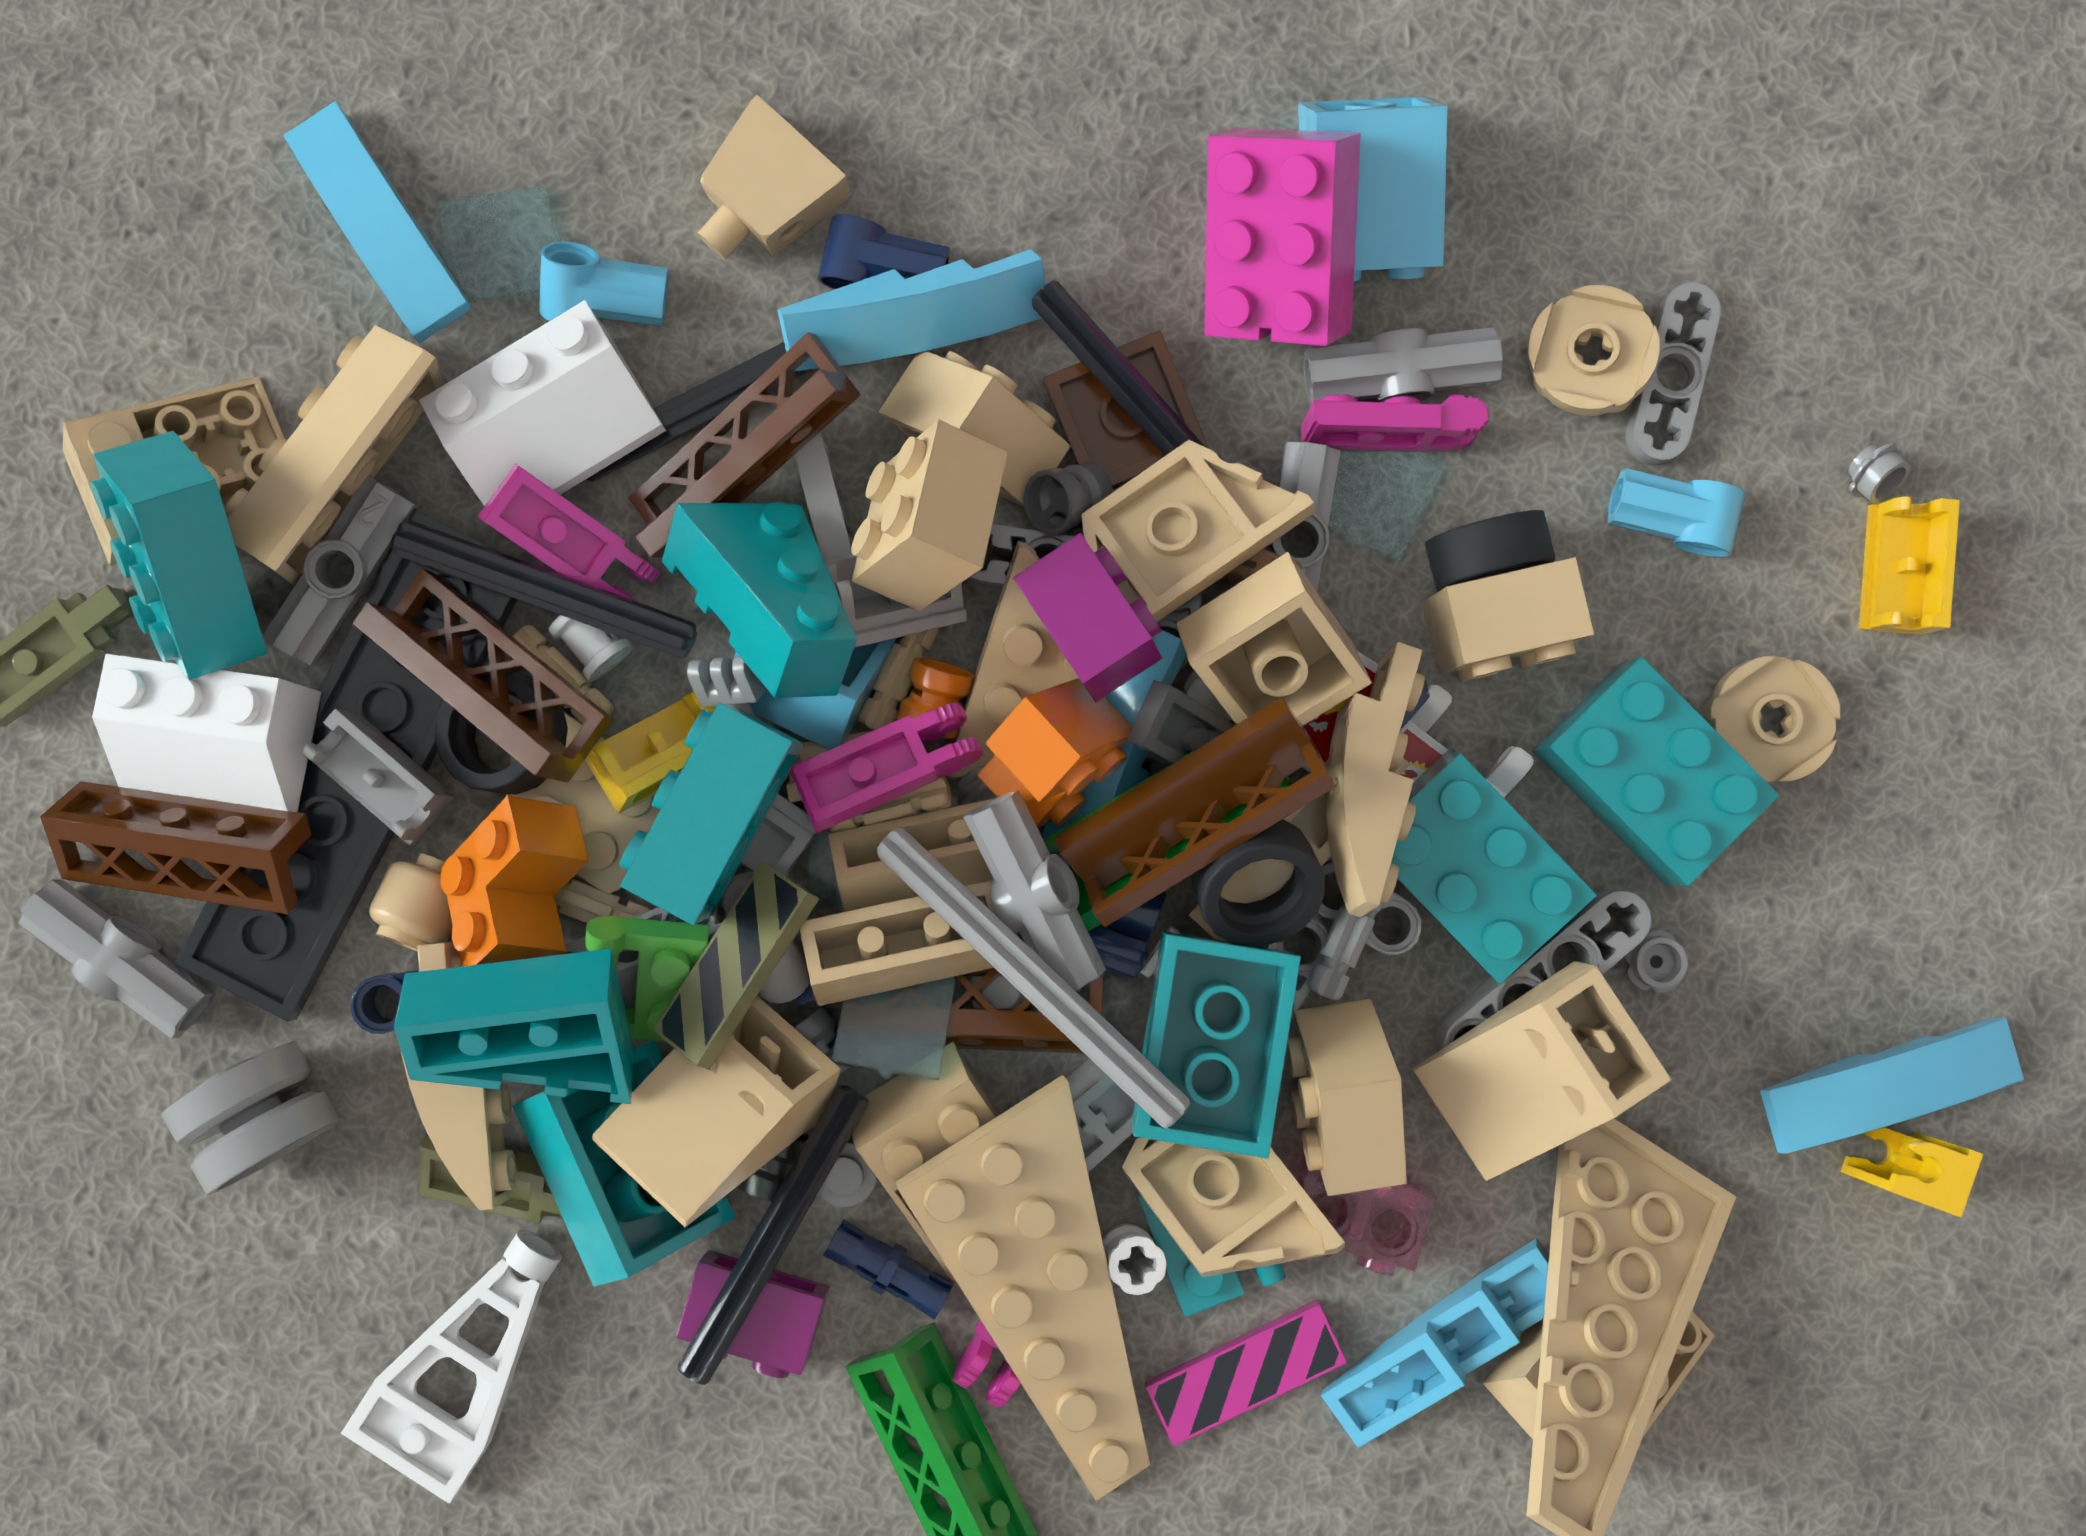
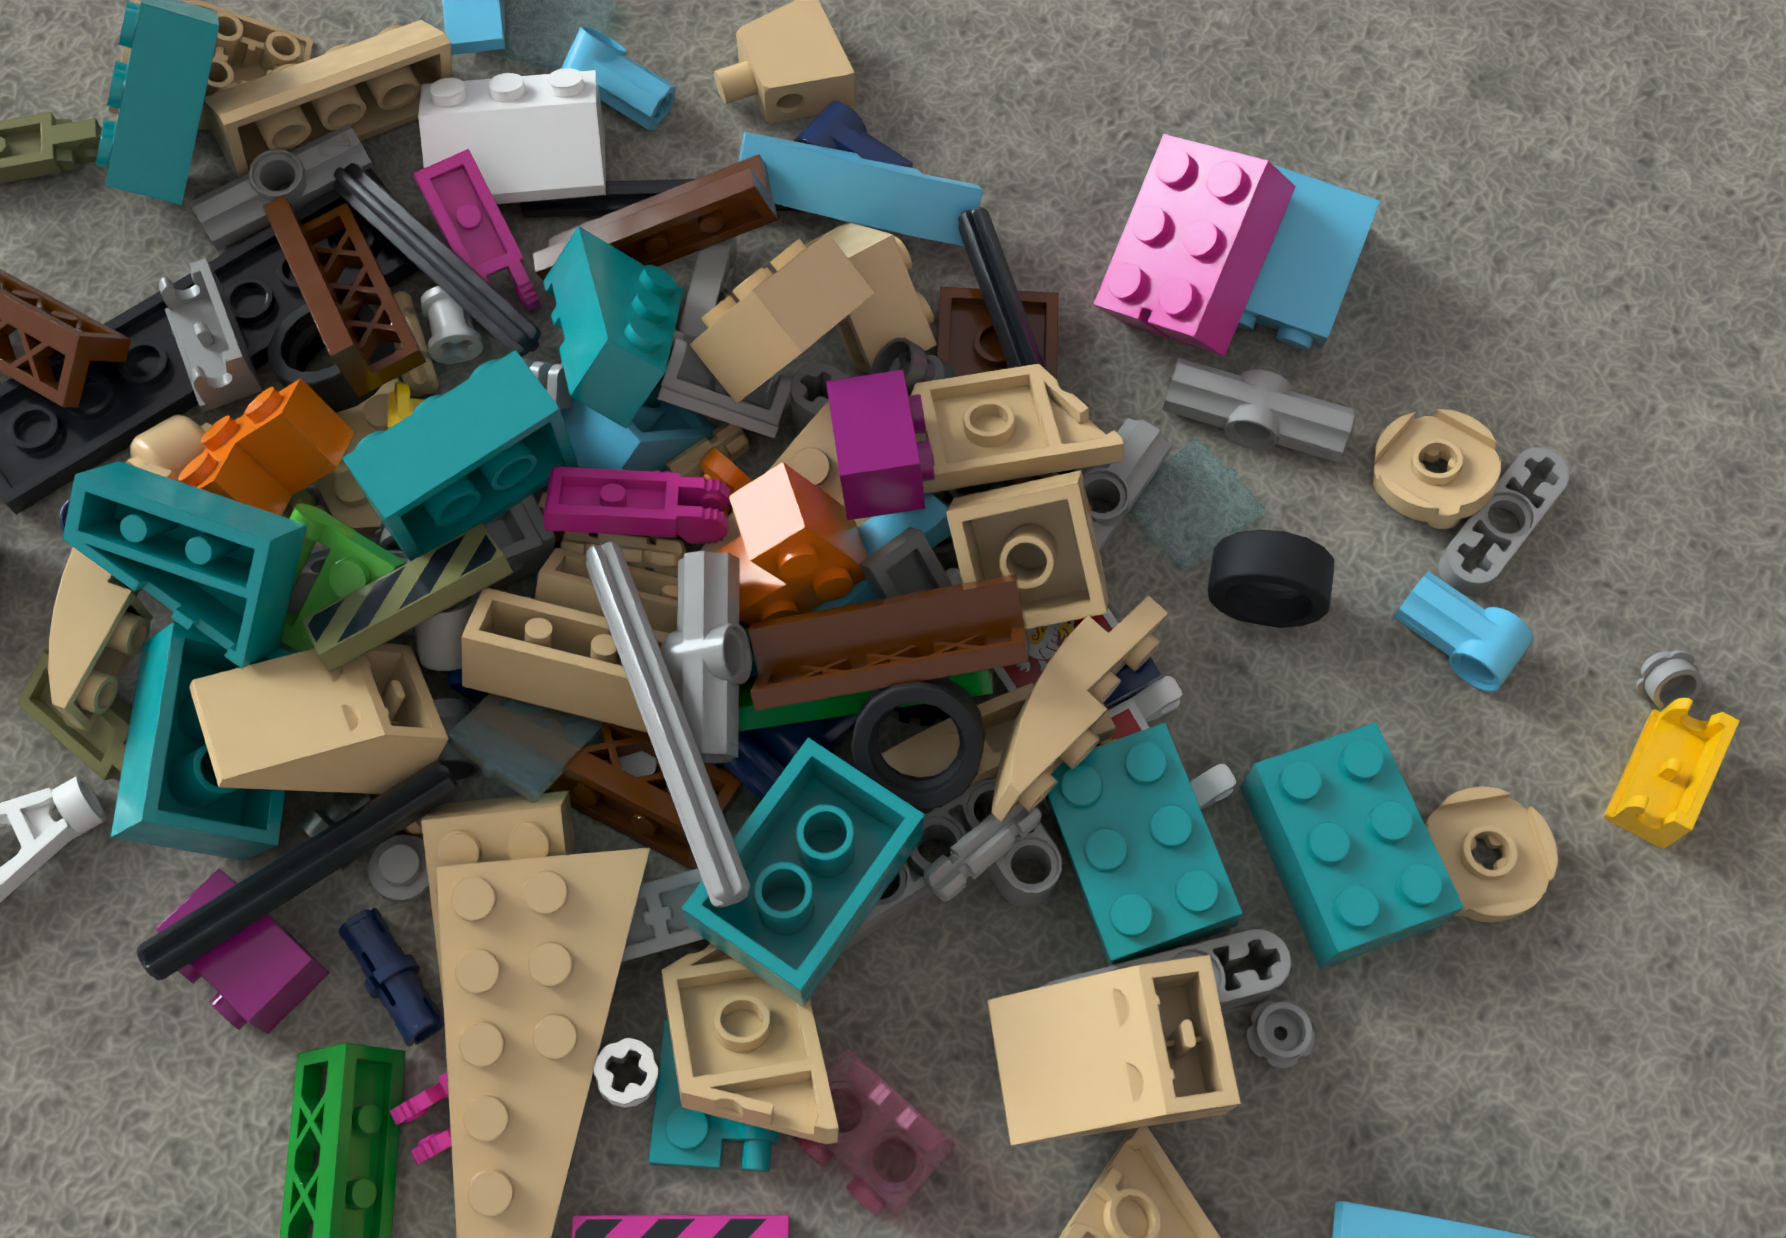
camera: 25 degrees right, 20 degrees down
(207, 736) = (95, 245): white slope -> none
(1347, 1097) = (906, 996): tan brick -> none
(1394, 424) = (1233, 448): dark pink hinge -> none
(1508, 616) = (1262, 638): tan brick -> none

